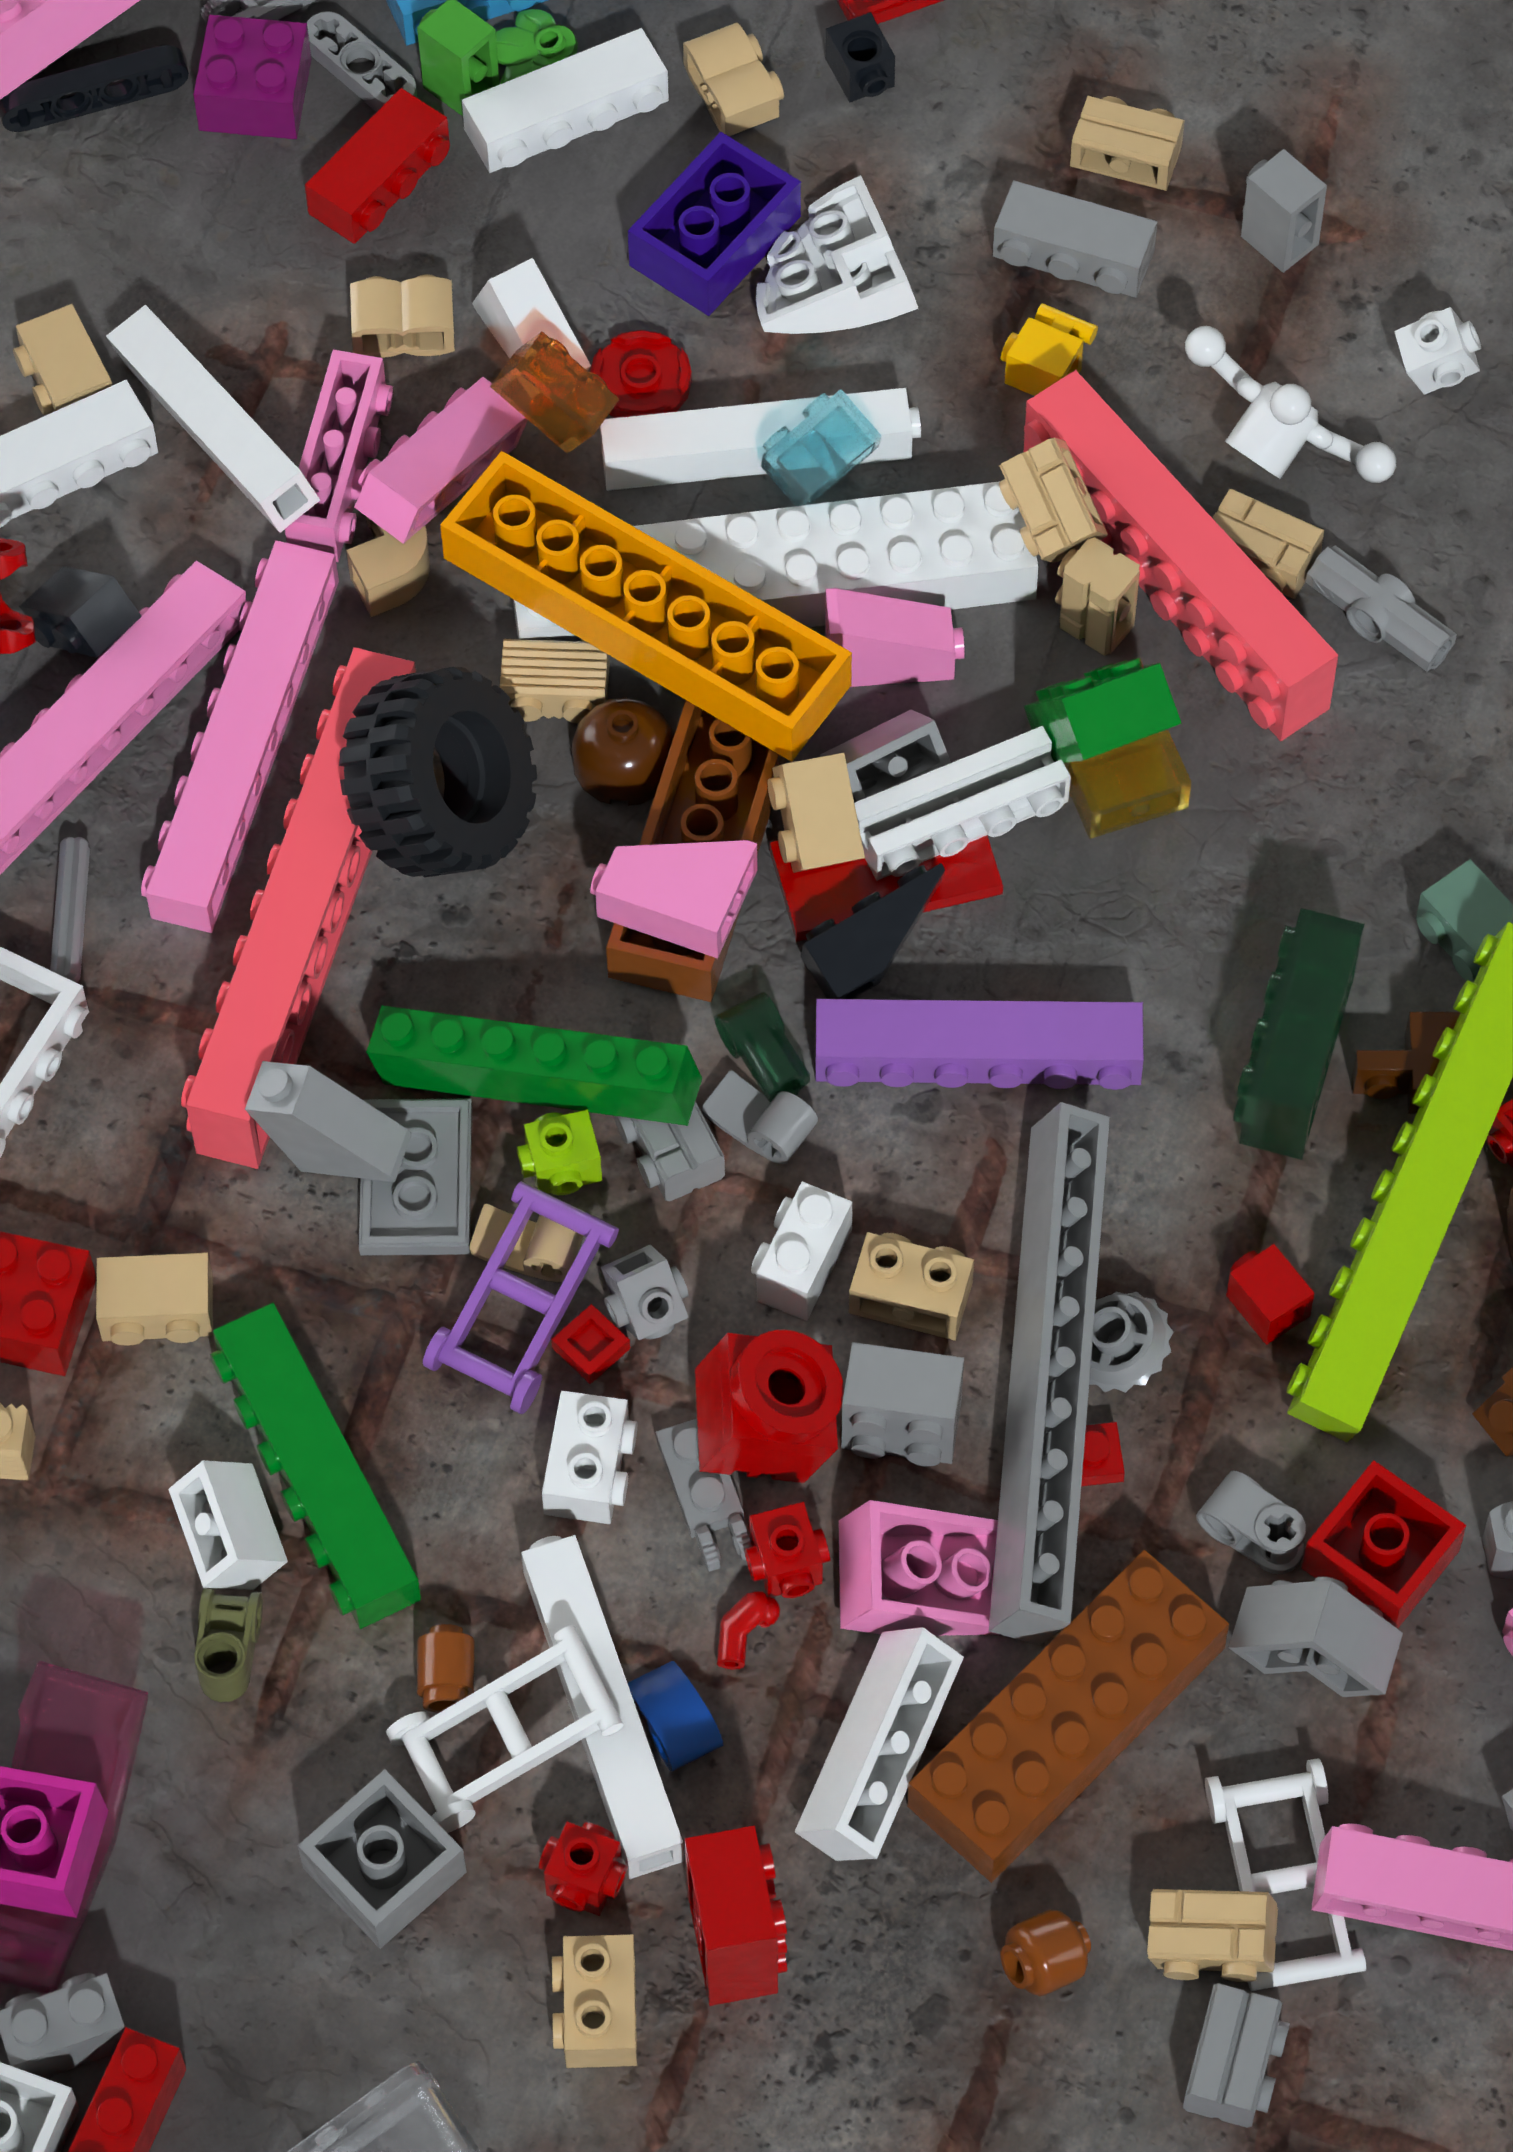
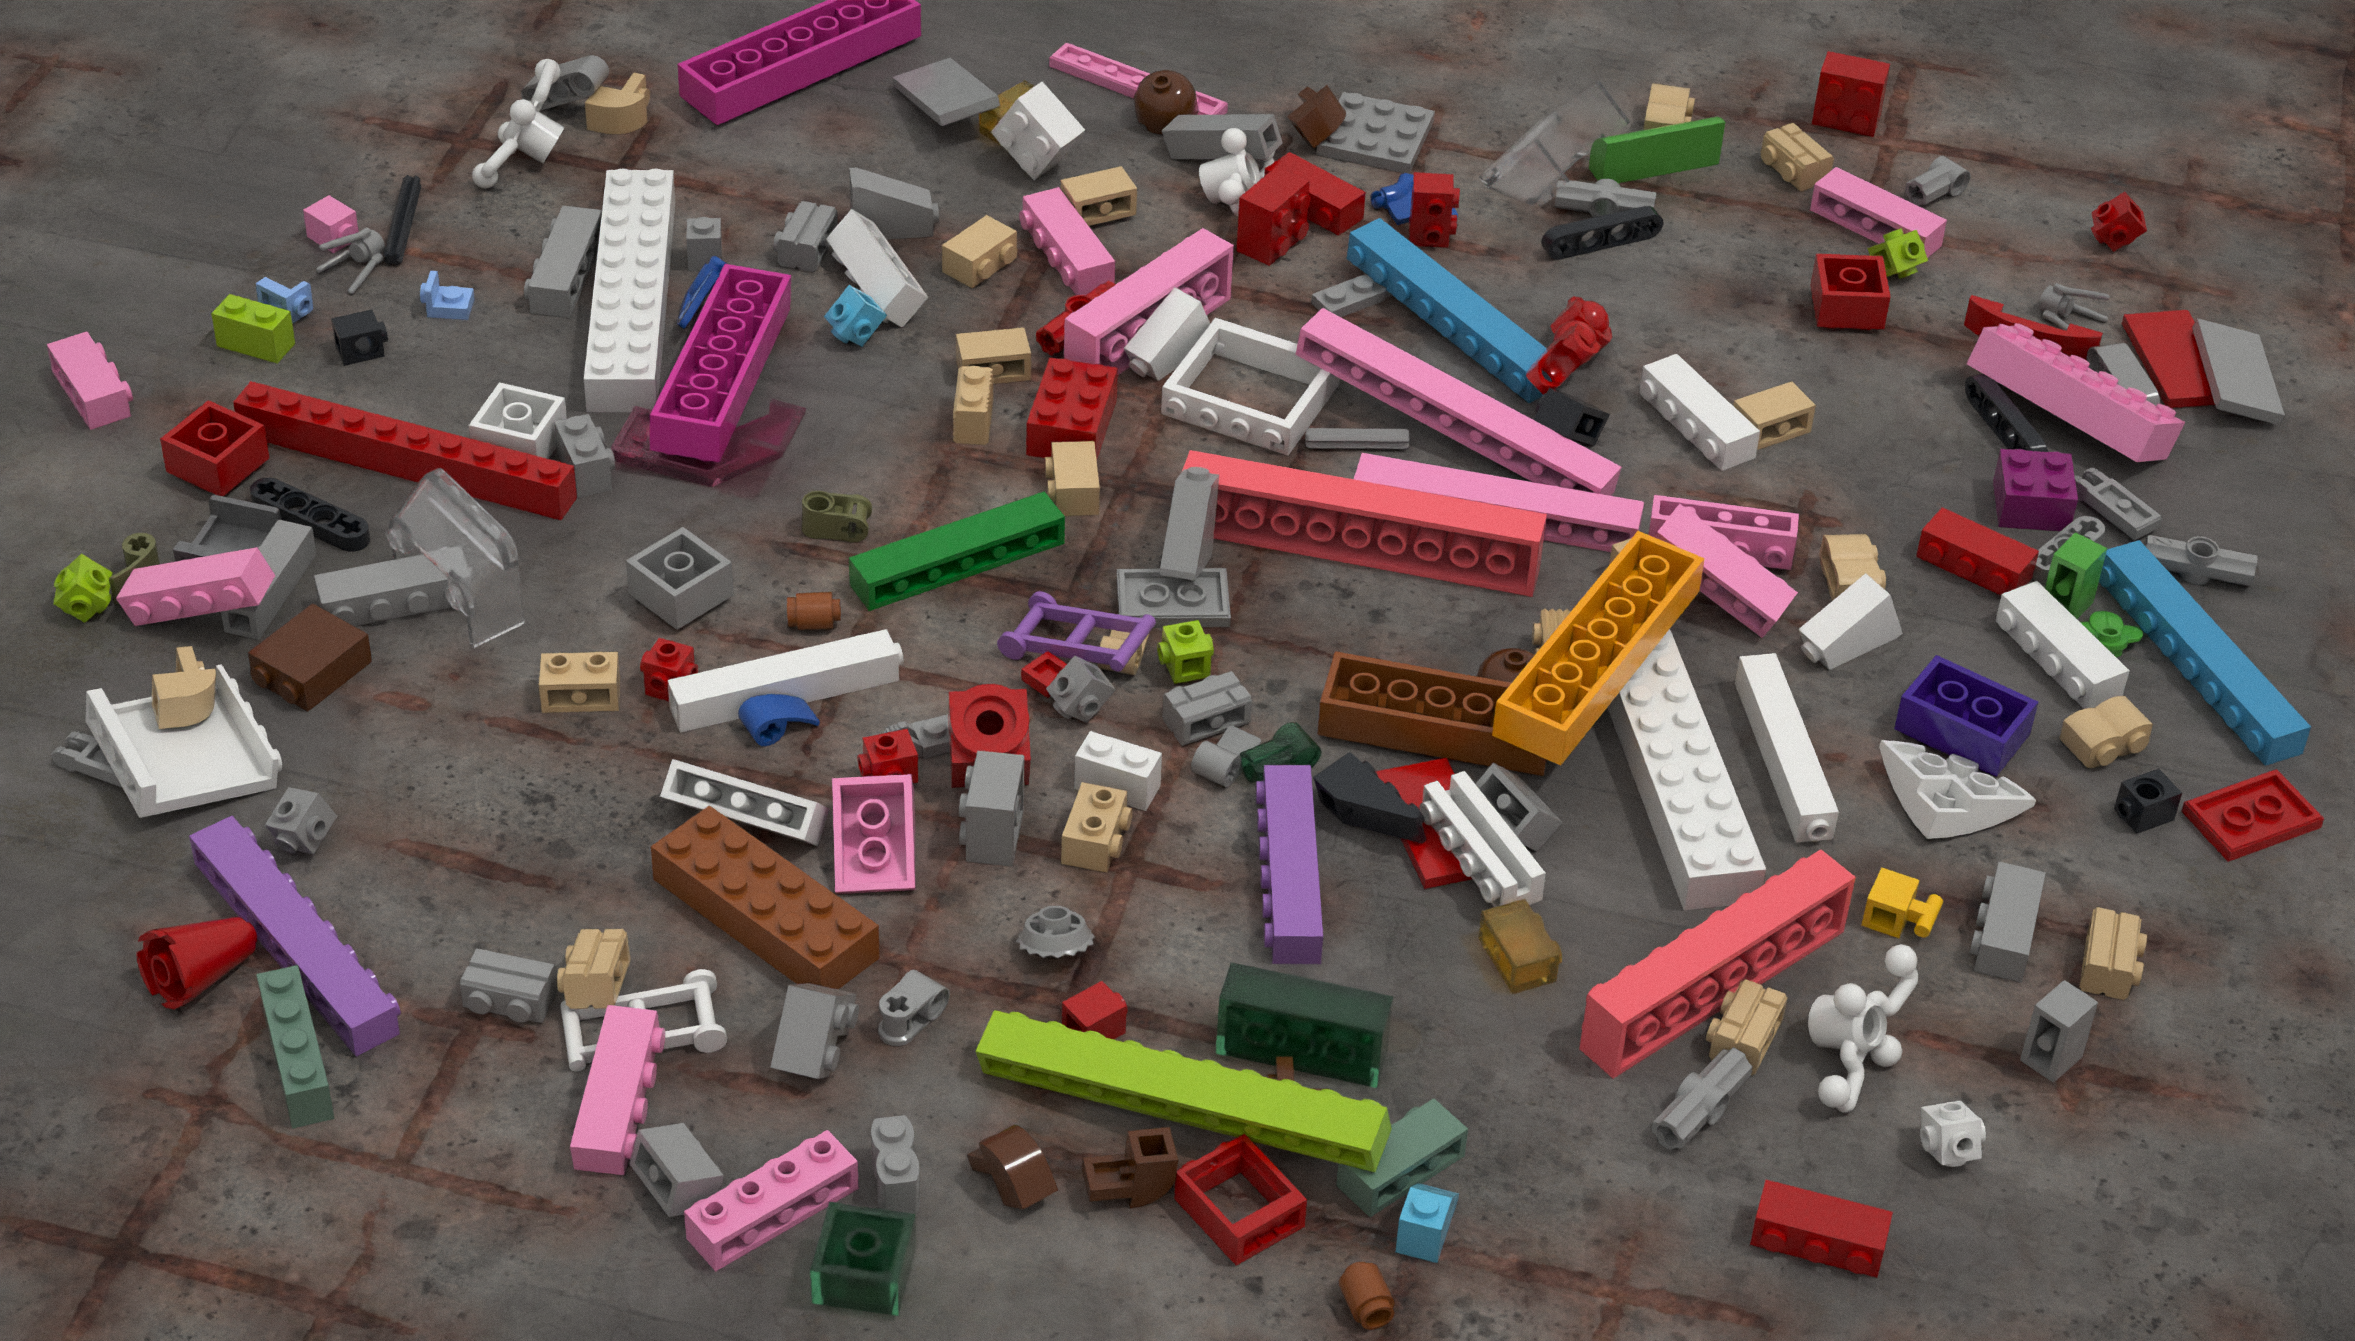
camera: 85 degrees right, 20 degrees down
(213, 418) = (1731, 463): white brick -> none
(227, 1525) = (911, 508): white brick -> none
(394, 779) = (1403, 557): black tyre -> none
(417, 1728) = (784, 620): white piece -> none
(535, 1065) = (1242, 624): green brick -> none
(555, 392) = (1786, 617): clear orange brick -> none
(587, 1457) = (959, 666): white brick -> none
(644, 373) = (1832, 695): red tile -> none
(677, 890) = (1373, 674): bright pink slope -> none
(735, 1914) = (616, 713): red brick -> none
(738, 1622) = (838, 748): red arm -> none
(816, 813) = (1455, 748): tan brick -> none
(819, 449) = (1766, 756): clear light blue brick -> none
(893, 638) = (1618, 803): bright pink slope -> none
(1045, 1952) = (592, 890): dark orange head -> none
(1049, 1376) = (1022, 884): light grey brick -> none
(1051, 500) = (1735, 865): tan brick -> none
(1098, 595) = (1671, 909): tan brick -> none
(1102, 1455) = (969, 928): red plate -> none
(1104, 709) = (1558, 897): green brick -> none
(1385, 1543) = (884, 1065): red brick -> none

